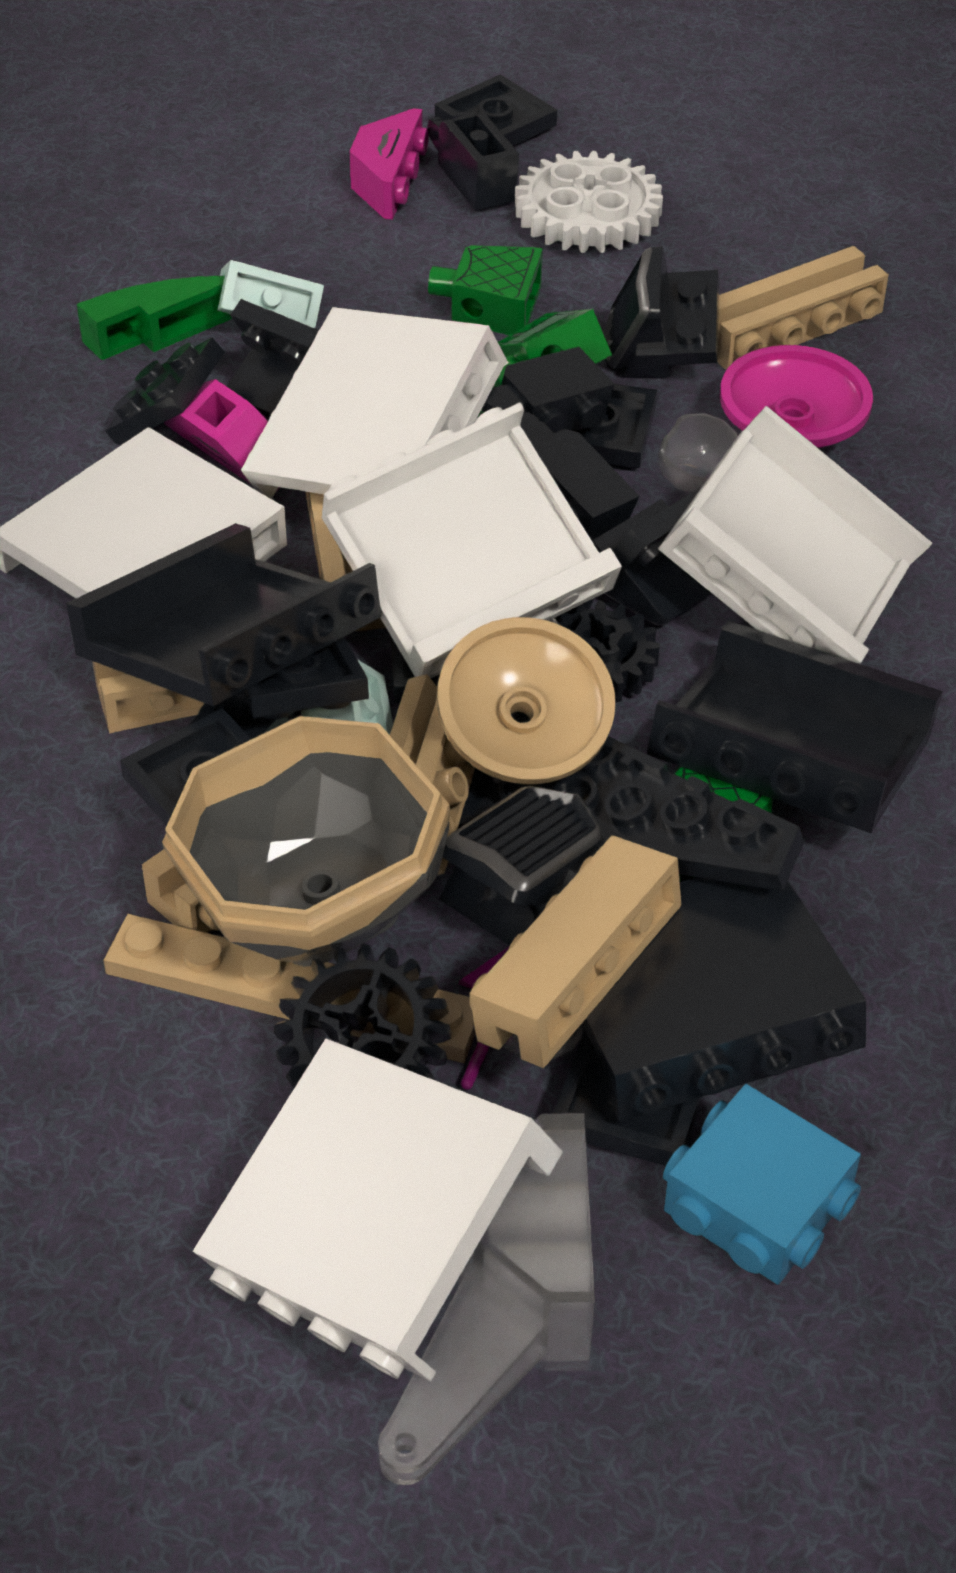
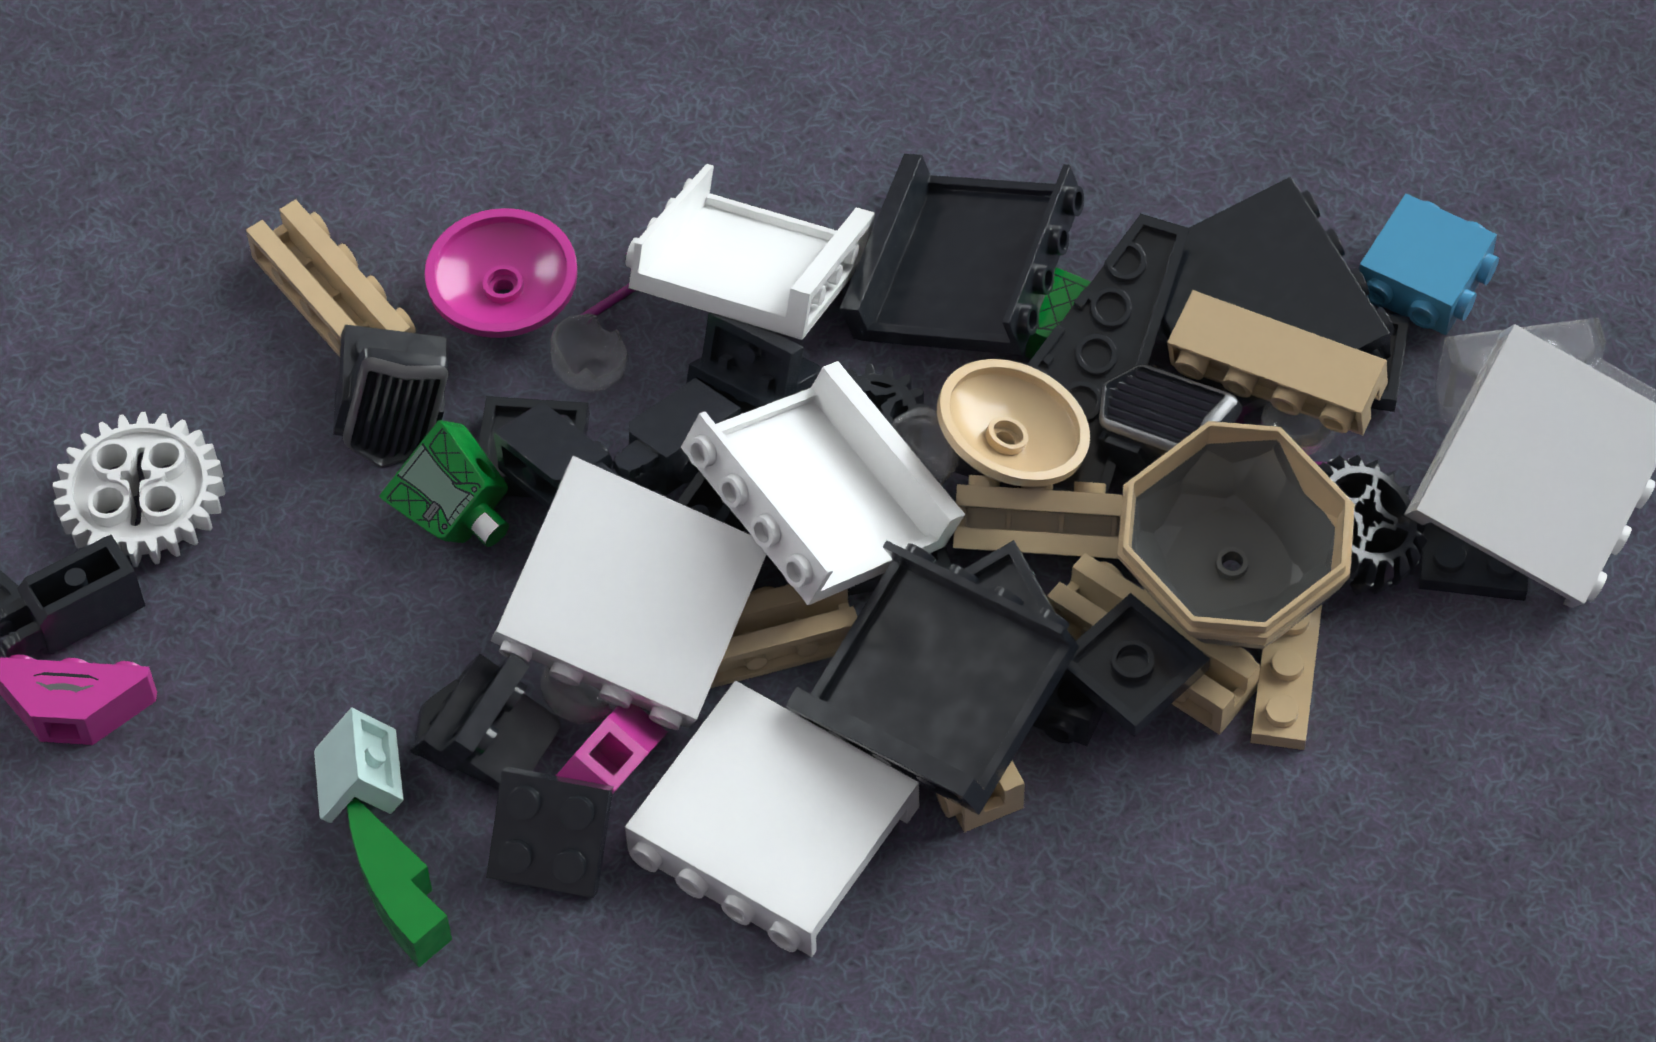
camera: 95 degrees left, 10 degrees up
(492, 286) = (317, 559): green torso -> none

